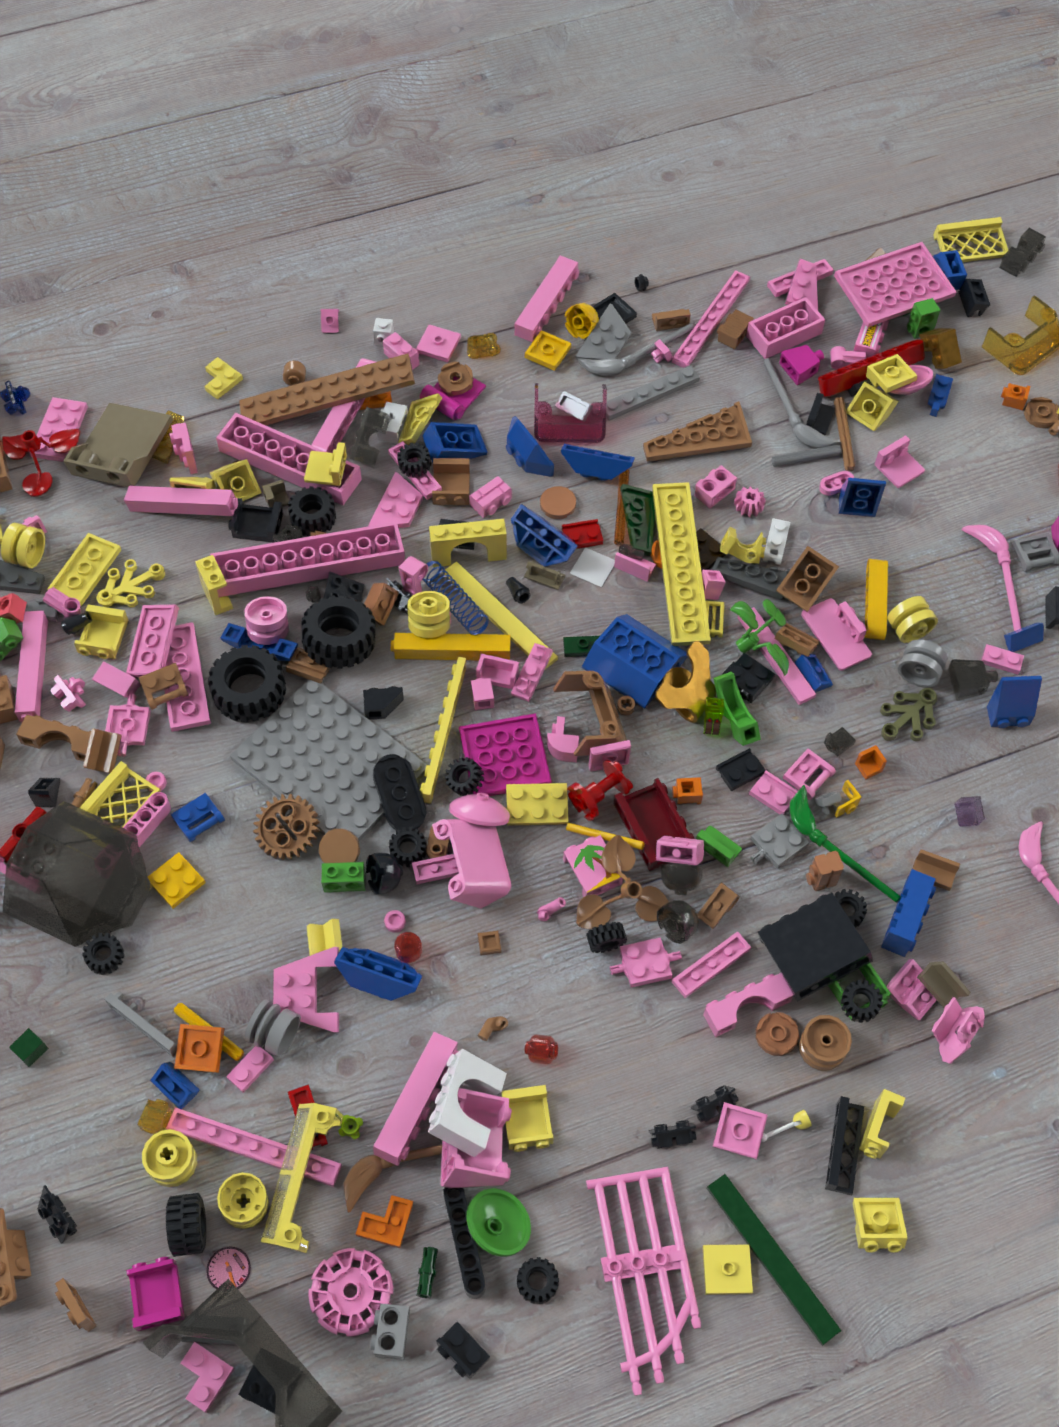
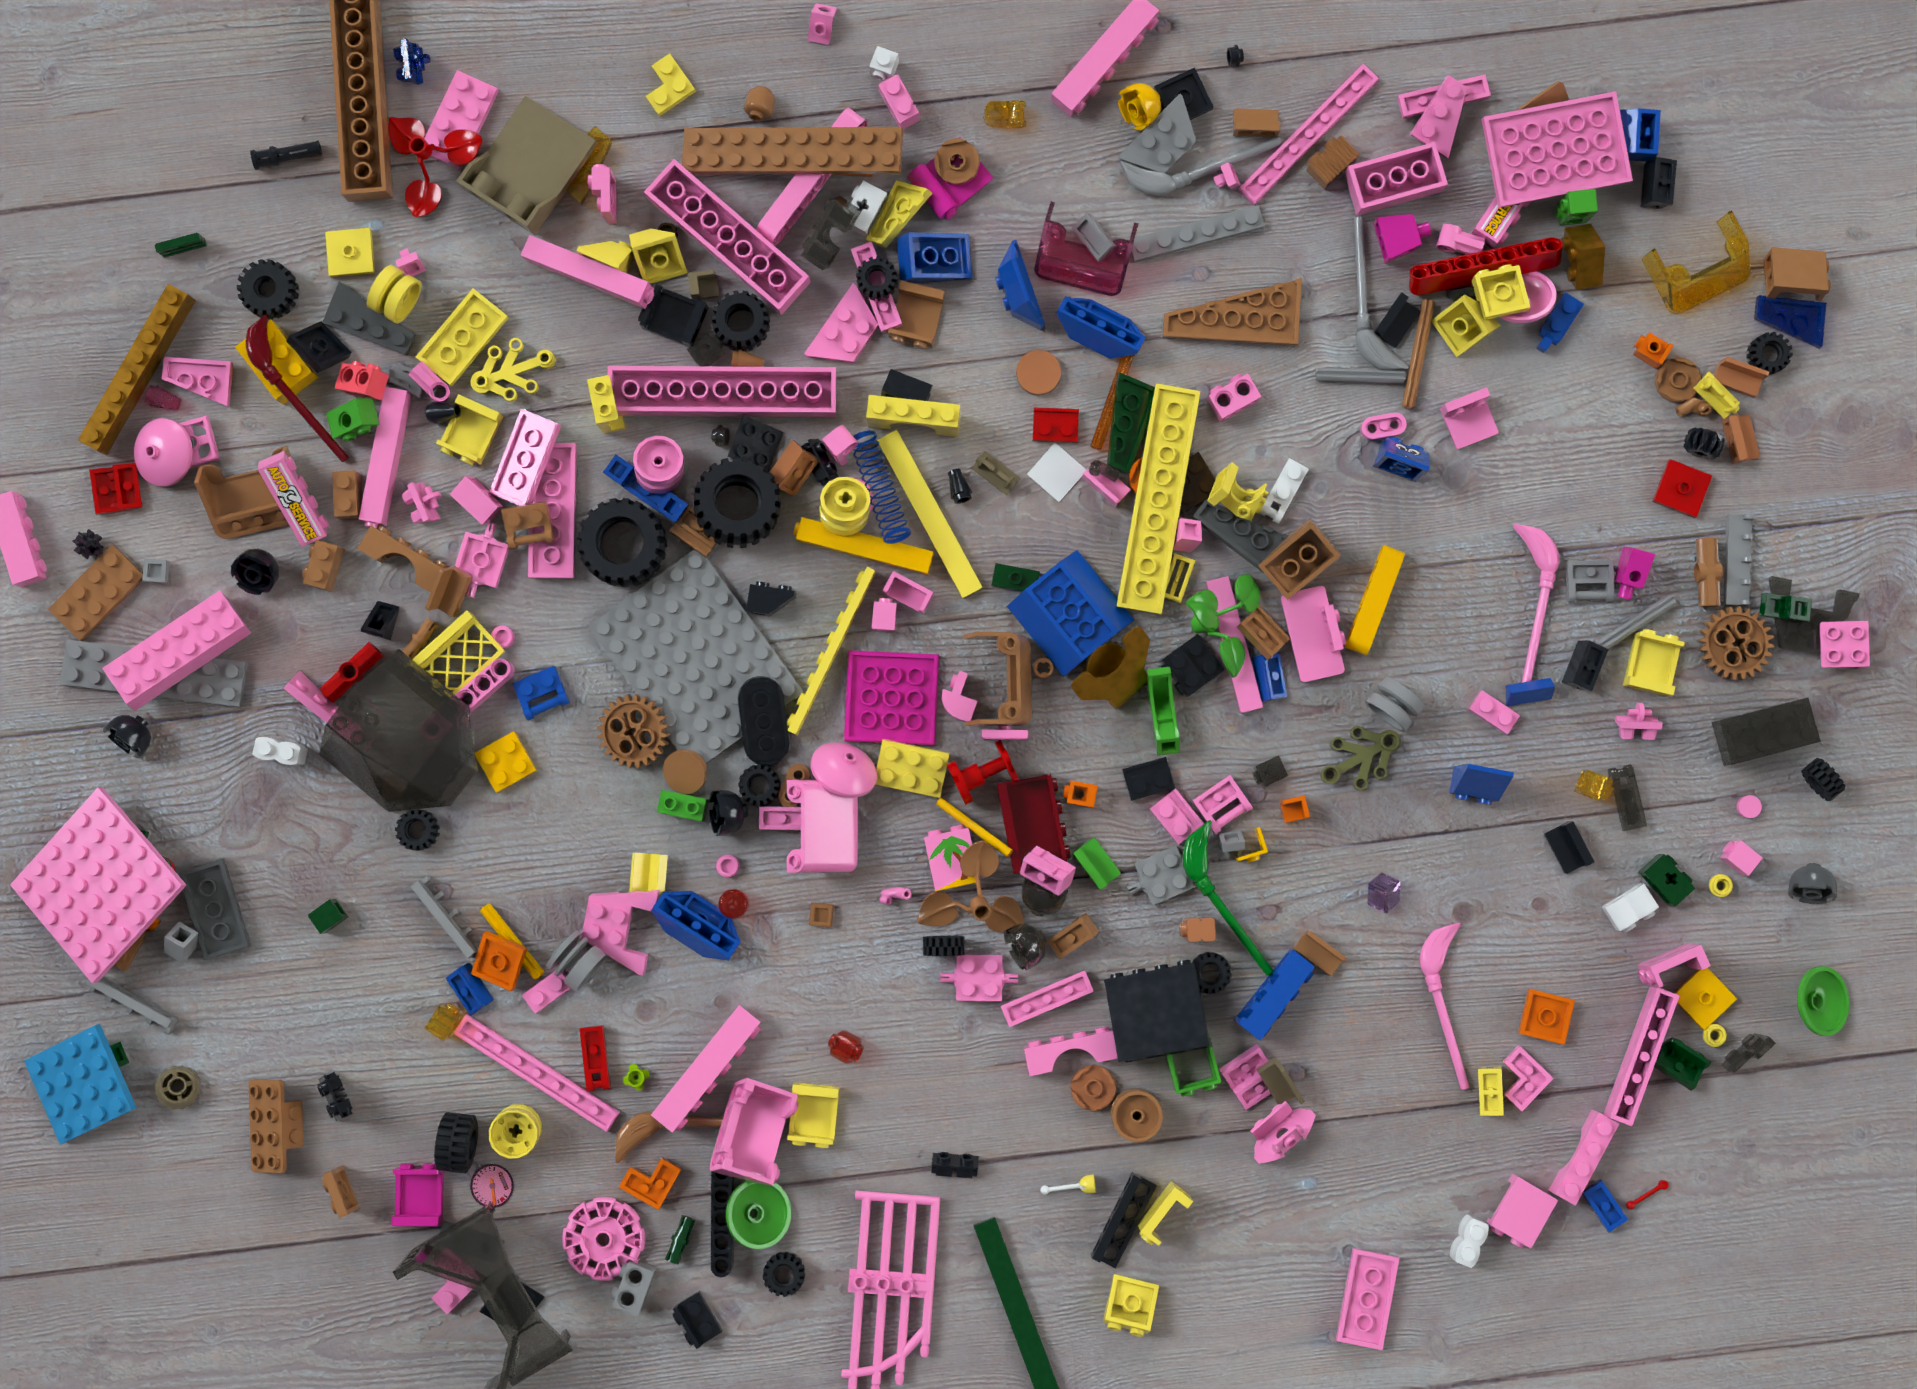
camera: 20 degrees right, 25 degrees up
(166, 1145) = (438, 1064): light yellow wheel -> none
(309, 1120) = (594, 1076): light yellow windscreen -> none
(326, 467) = (766, 272): light yellow bracket -> none
(438, 343) = (950, 93): bright pink plate -> none
(448, 1119) = (729, 1110): white arch -> none
(455, 772) = (850, 718): black tyre -> none
(490, 497) = (959, 348): bright pink brick -> none
(491, 1025) = (802, 1006): medium nougat arm -> none
(531, 672) = (947, 601): bright pink plate -> none
(541, 538) = (1005, 424): blue wedge -> none
(547, 350) = (1085, 139): yellow plate -> none
(707, 1105) = (996, 1145): black hinge -> none
(713, 716) = (1135, 713): clear neon green leg -> none
(727, 1269) = (970, 1308): light yellow plate -> none
(740, 1130) = (1023, 1180): bright pink plate -> none
(749, 501) = (1272, 422): bright pink gear -> none
(867, 990) = (1200, 1086): black tyre -> none
(912, 619) = (1404, 645): light yellow wheel -> none
(968, 229) = (1690, 68): light yellow fence -> none
(970, 678) = (1446, 730): clear smoke torso -> none
(1018, 259) = (1767, 111): clear smoke arch -> none

